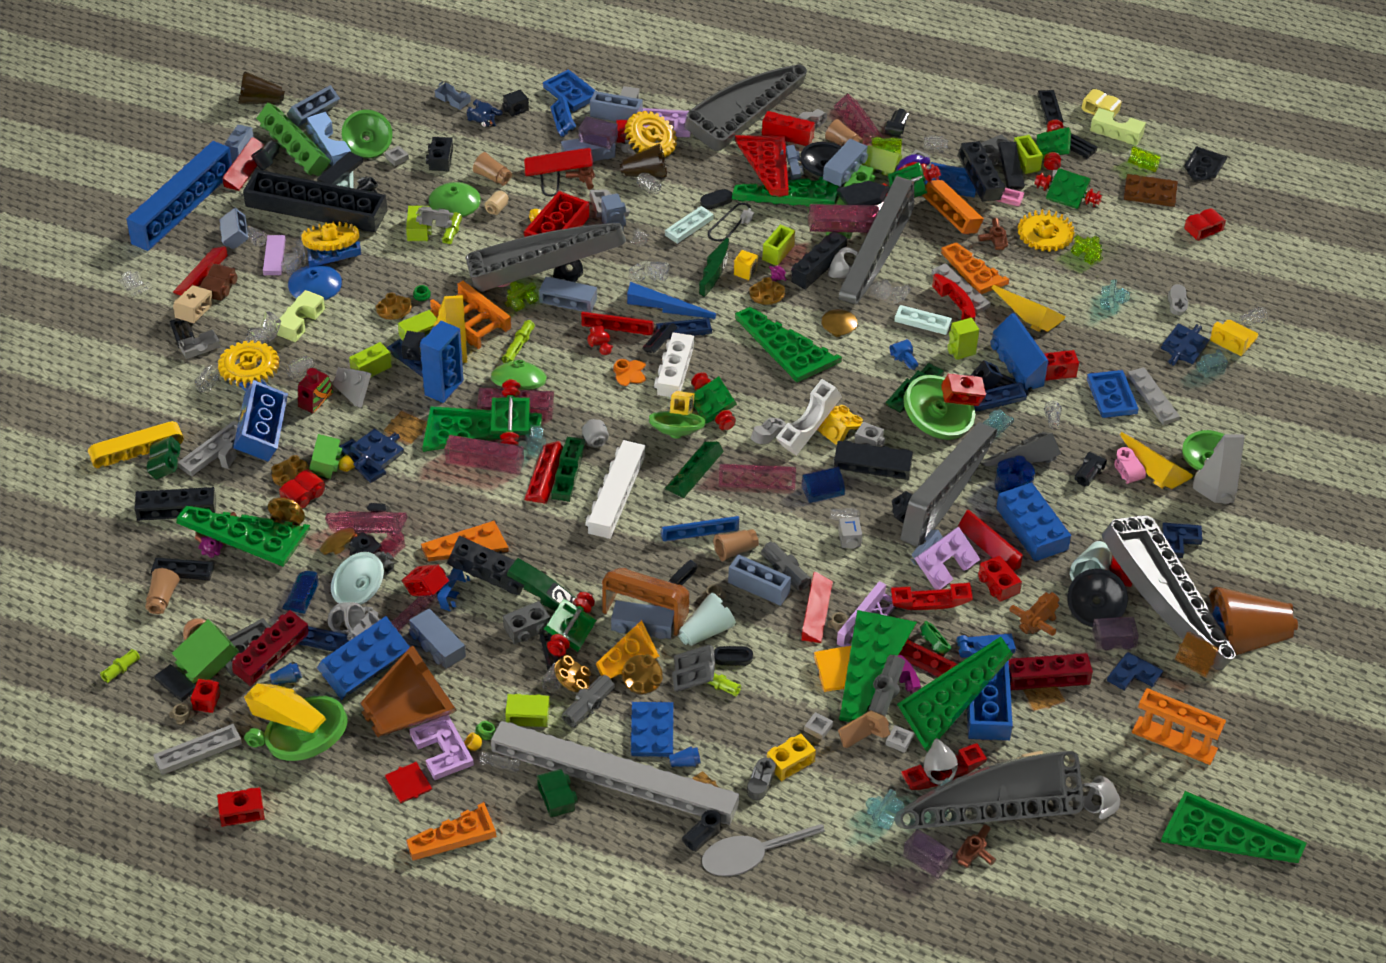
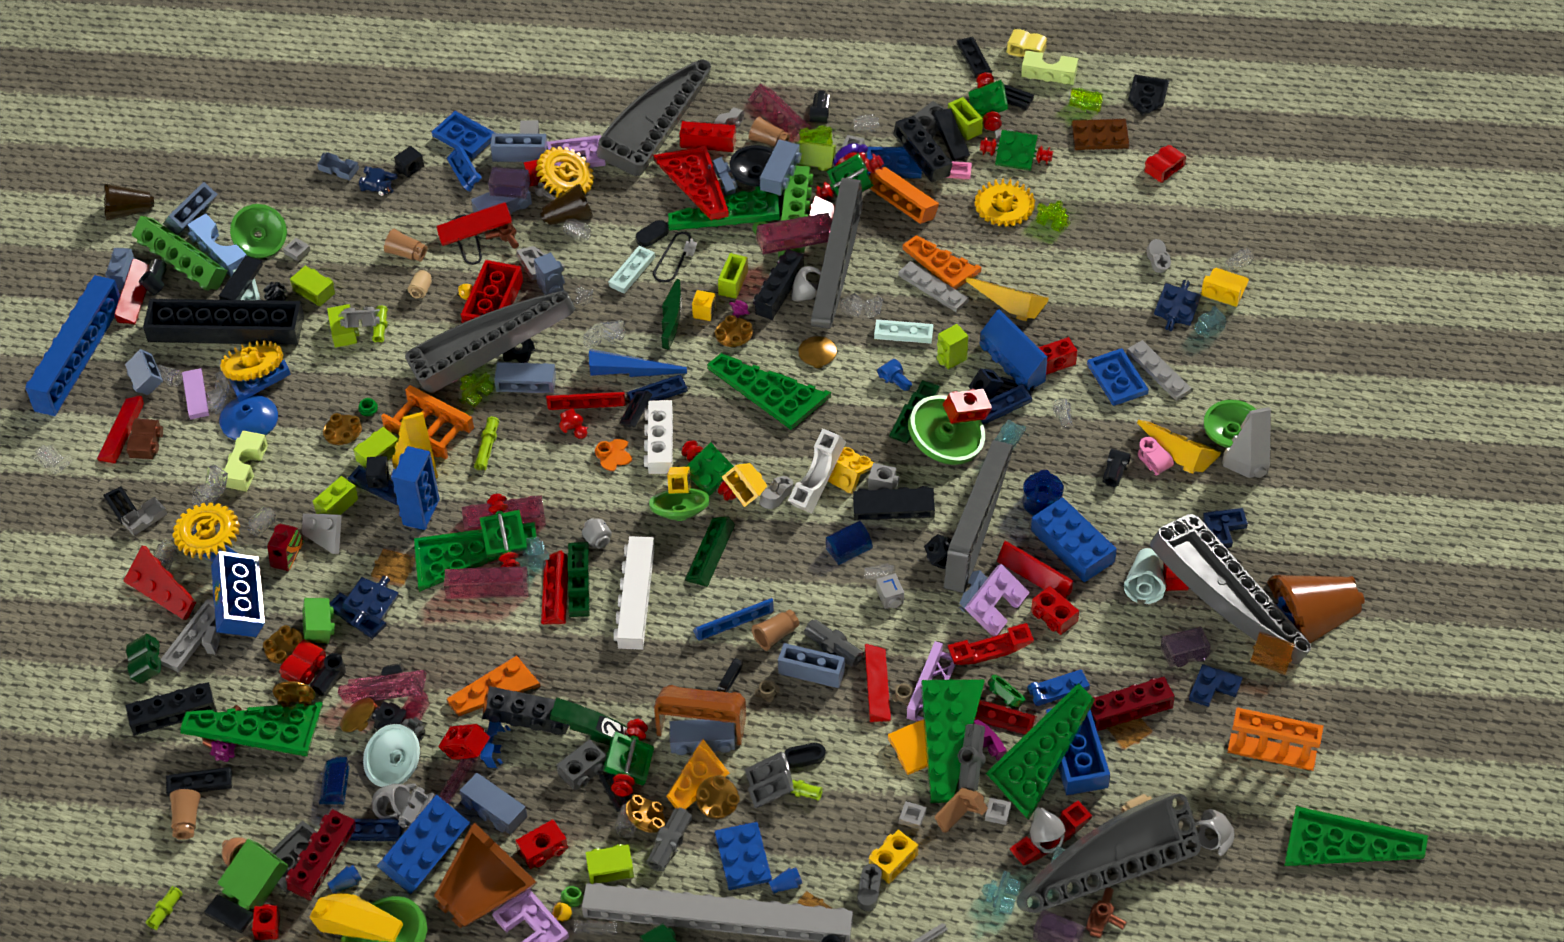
camera: 10 degrees left, 5 degrees up
(132, 444) = (105, 649): yellow beam -> none
(192, 304) = (123, 471): tan brick -> none
(195, 401) = (155, 582): none -> red wing
(326, 500) = (328, 676): none -> black piece
(346, 464) = (341, 623): yellow hinge -> none
(402, 187) = (312, 285): none -> lime brick
(440, 153) = (343, 237): black brick -> none
(455, 198) = (372, 288): bright green dish -> none
(470, 681) = (546, 834): none -> red brick
(523, 372) = (498, 480): bright green dish -> none
(706, 621) = (769, 724): light aqua cone -> none
(740, 415) = (745, 482): none -> yellow torso
(757, 470) = (772, 540): clear pink fence -> none
(863, 193) = (807, 200): black tile -> none
(947, 287) = (918, 289): red slope -> none
(996, 234) = (956, 218): copper piece -> none
(1034, 618) = (1101, 648): dark orange piece -> none
(1035, 449) = (1055, 456): dark grey wedge -> none
(1101, 585) = (1169, 601): black dish -> none
(1113, 297) = (1094, 264): clear light blue hips -> none

